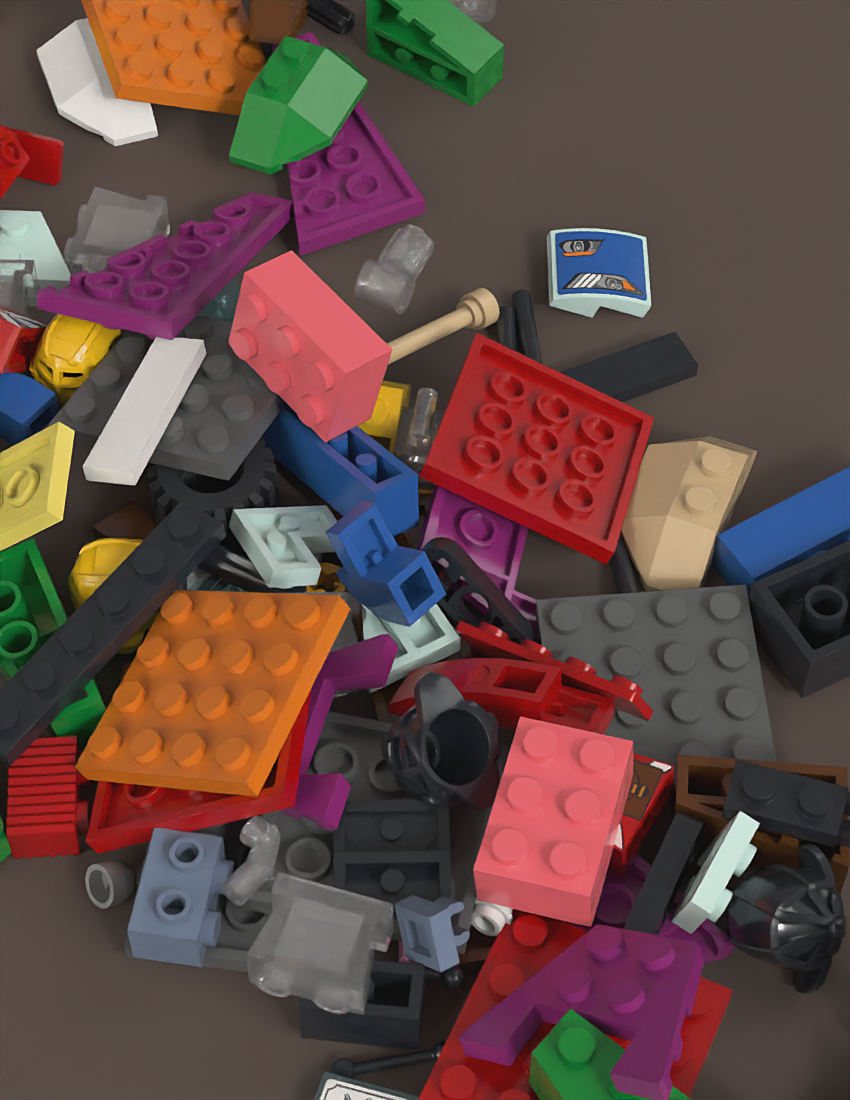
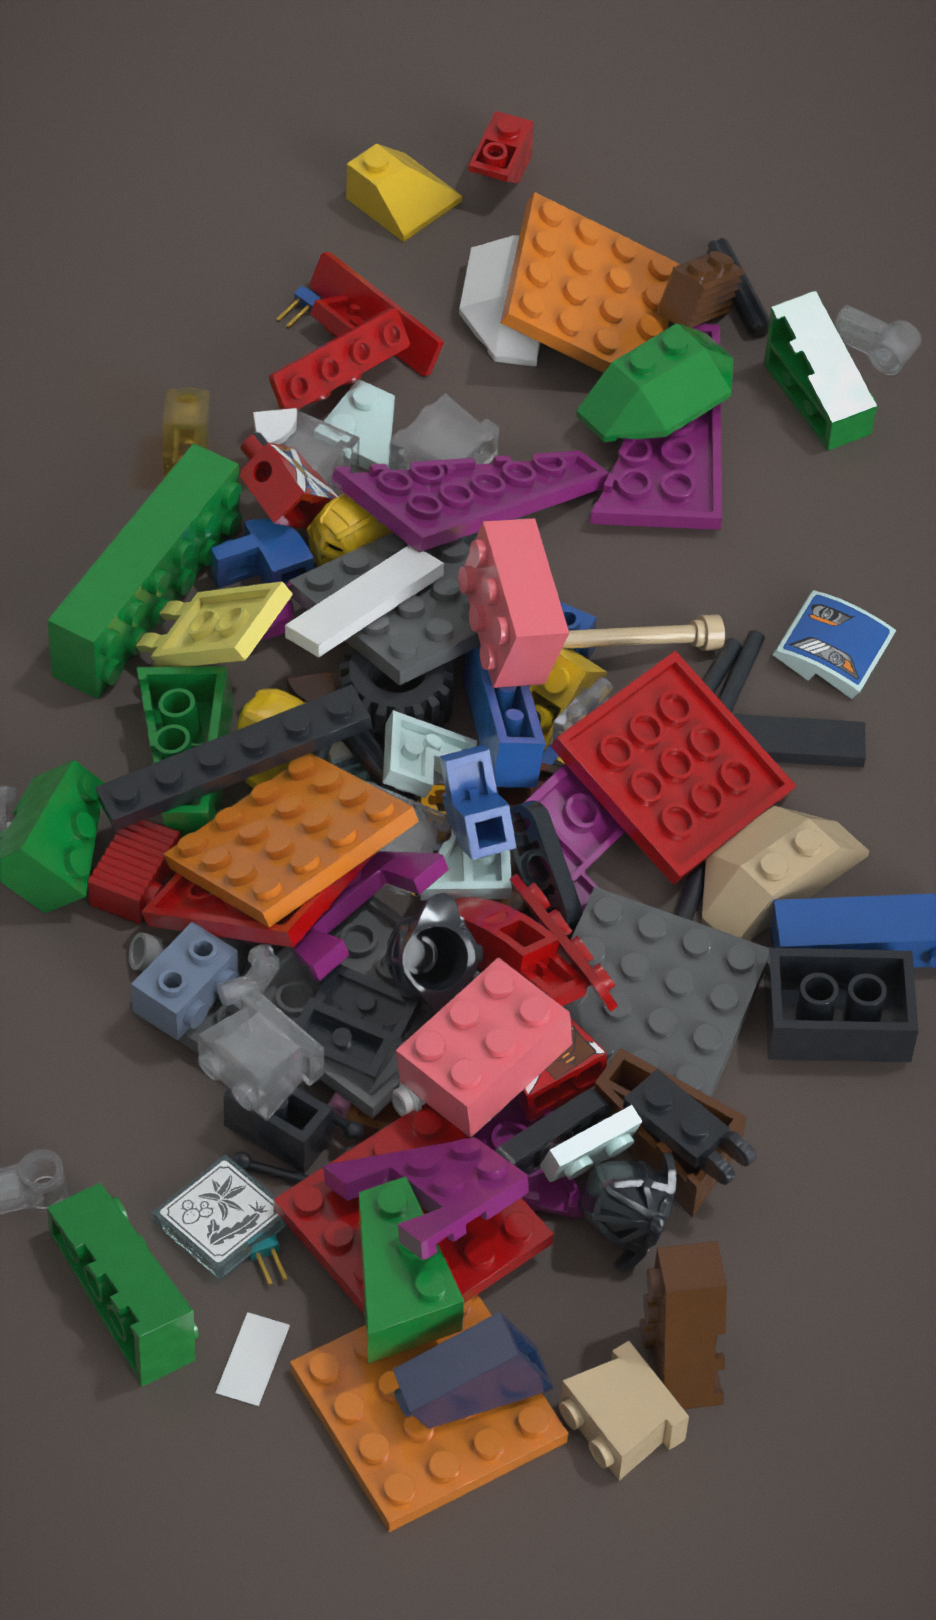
camera: 25 degrees right, 0 degrees up
(393, 276) = (652, 575): clear piece -> none
(429, 932) = (344, 1084): sand blue tile -> none

